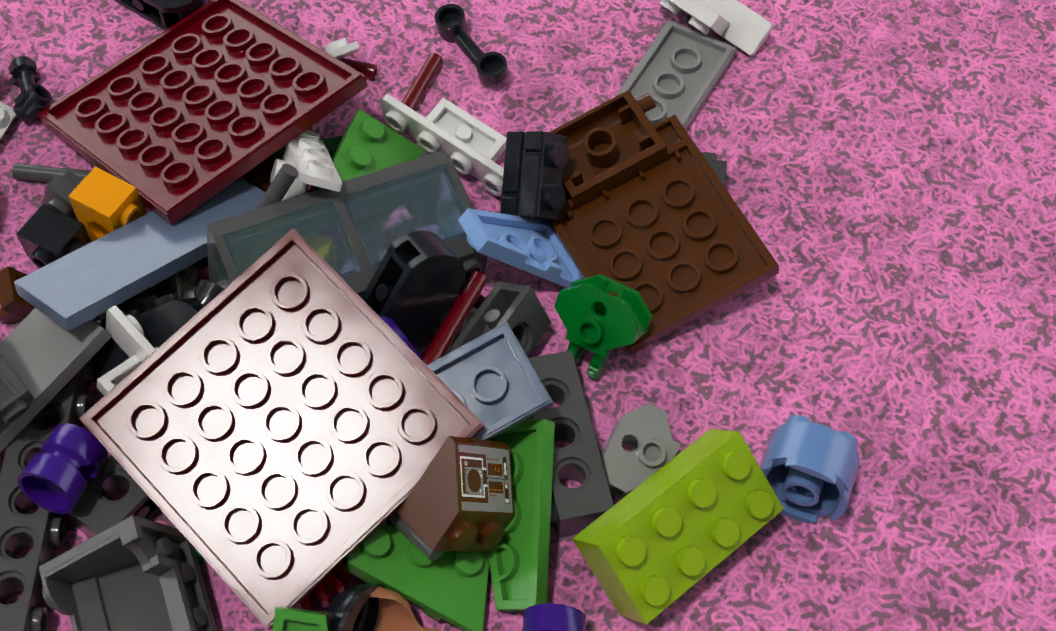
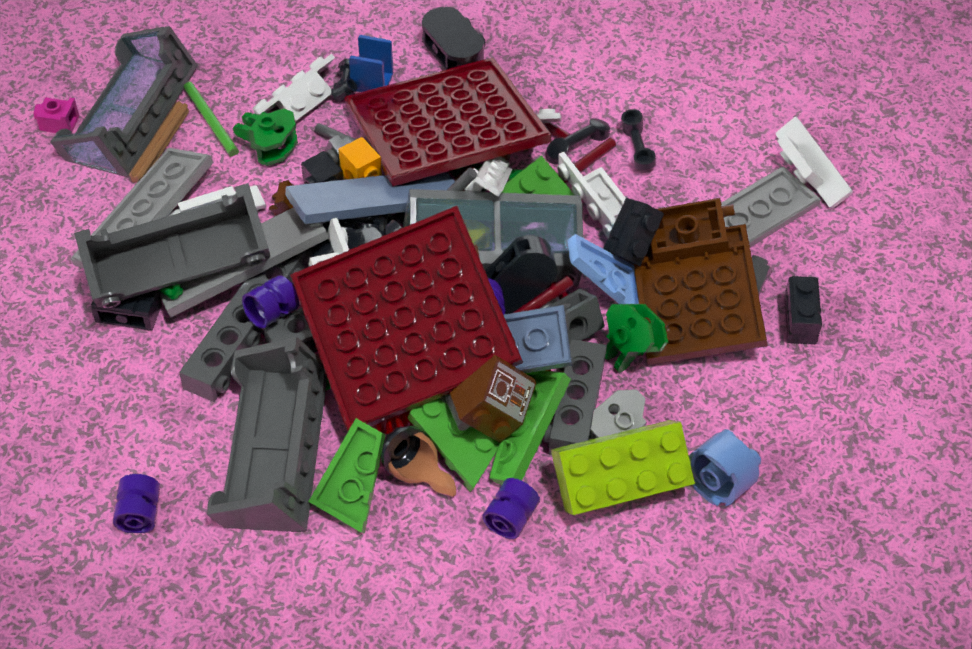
camera: 25 degrees right, 5 degrees down
(60, 53) = (373, 65): none -> blue piece
(408, 49) = (596, 130): none -> black bar
(792, 206) = (802, 310): none -> black brick

